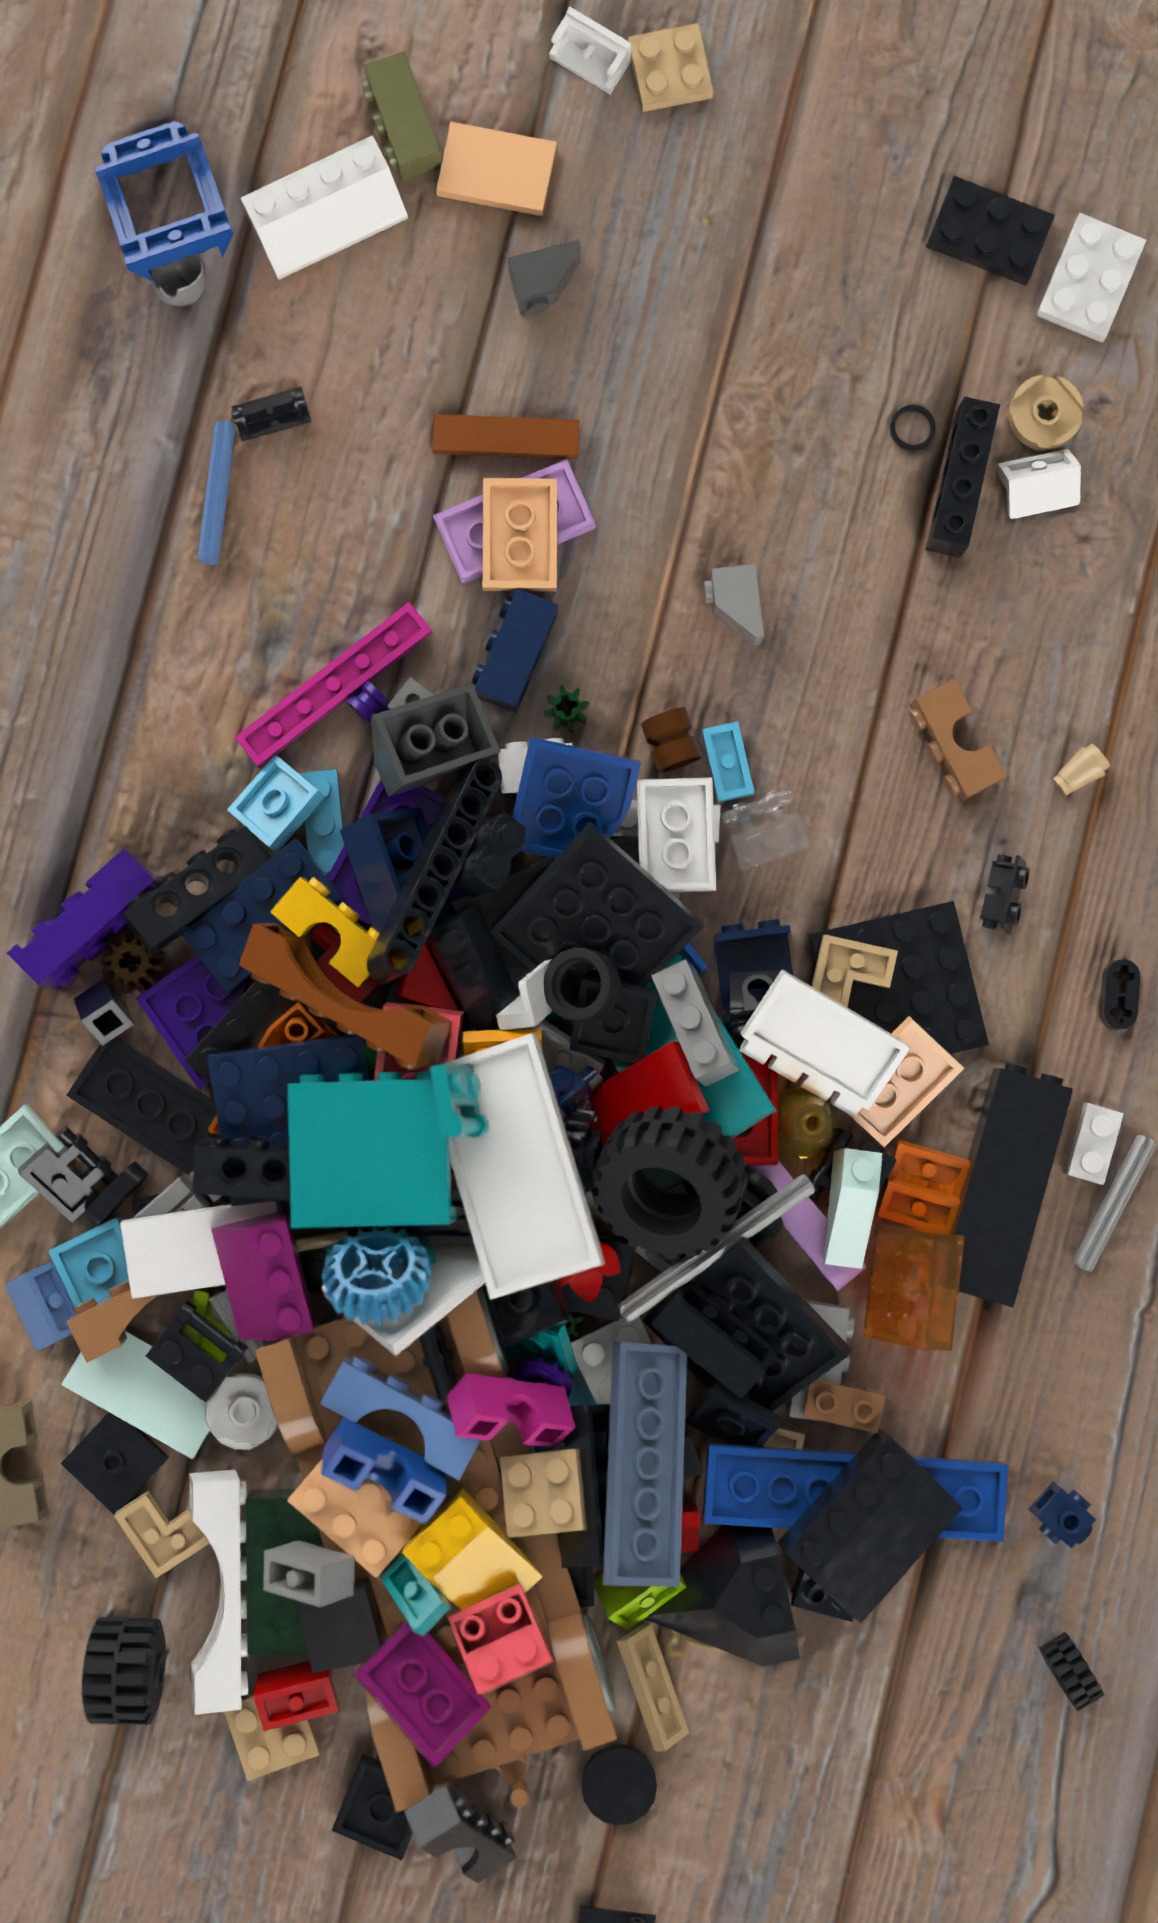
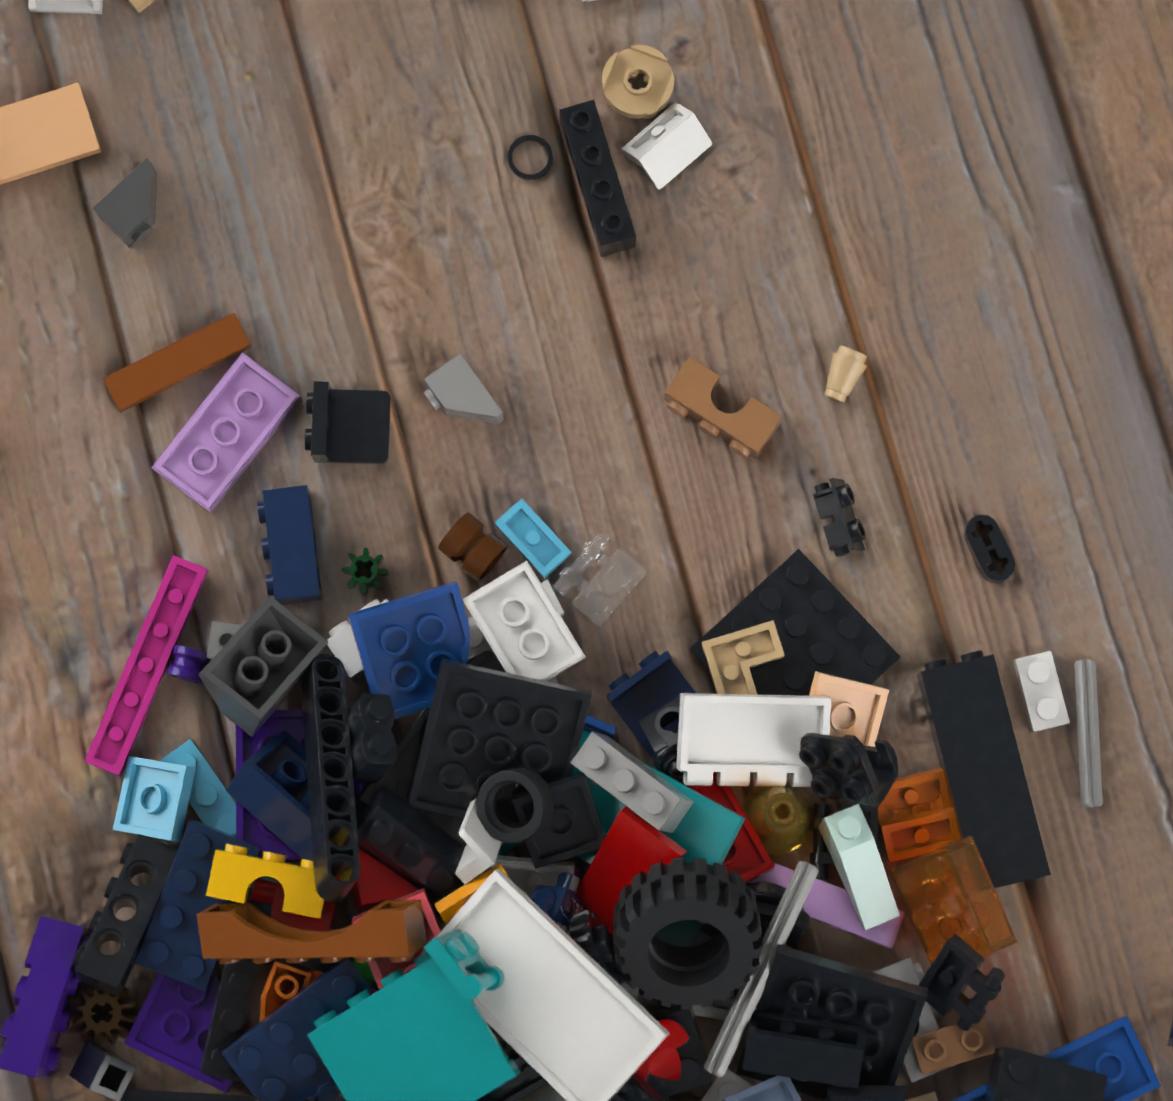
camera: 25 degrees left, 5 degrees down
(519, 534) = (238, 442): light nougat plate -> none
(622, 573) = (348, 425): none -> black bracket
(880, 1346) = (951, 974): none -> black plate
(891, 1117) = (848, 769): none -> black piece

